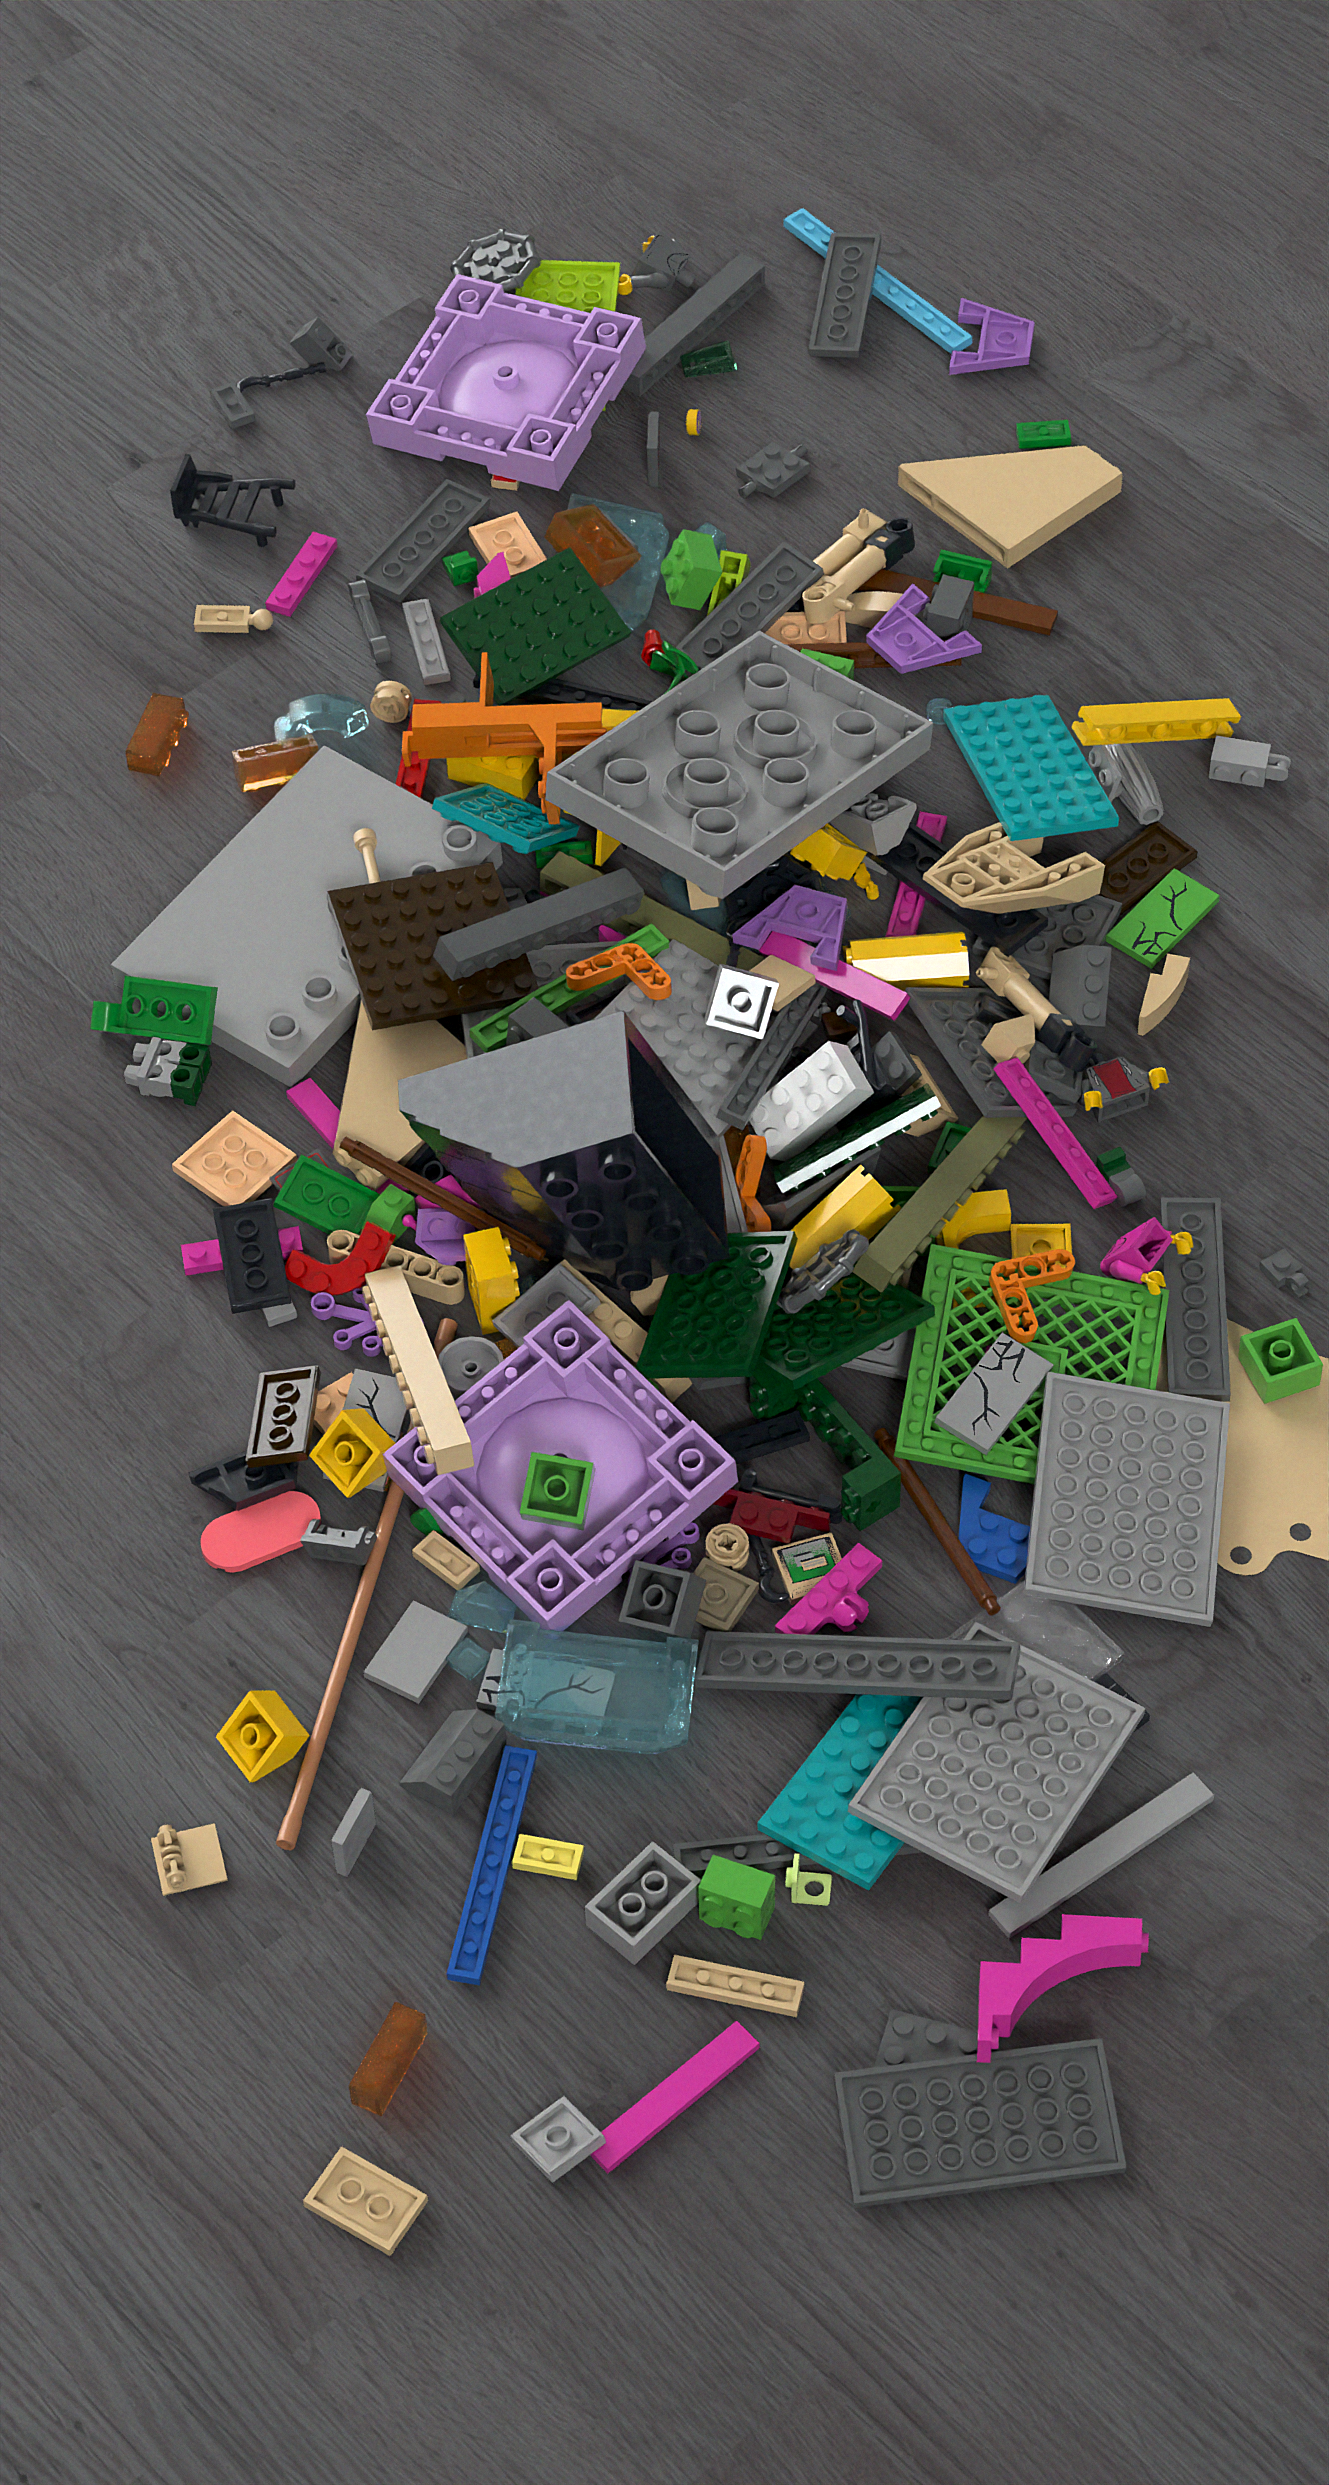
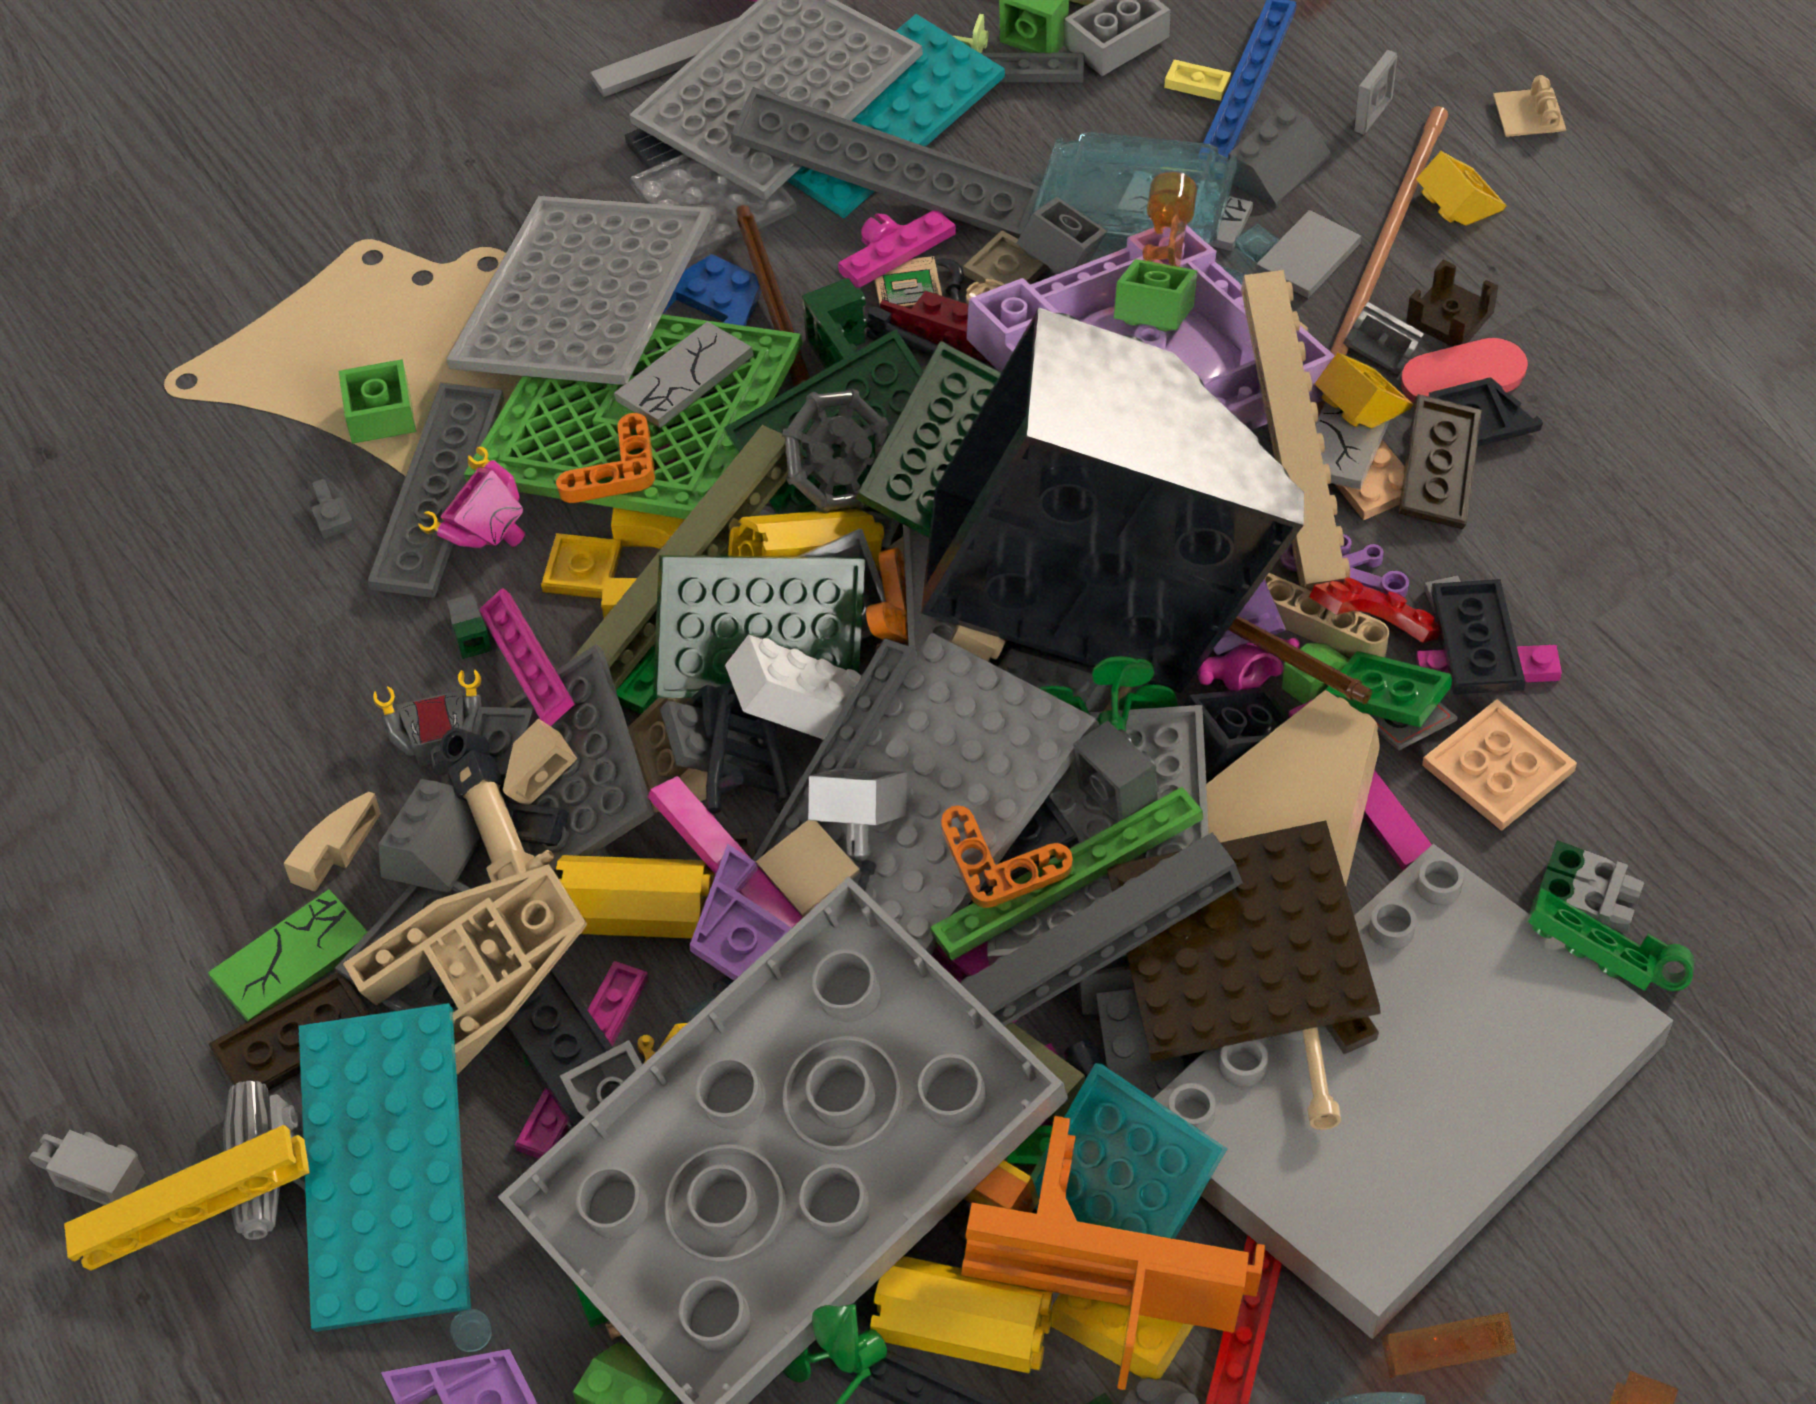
camera: 170 degrees left, 0 degrees up
(273, 1594) = (1450, 310): none -> dark brown panel
(553, 1600) = (1172, 206): none -> clear orange piece

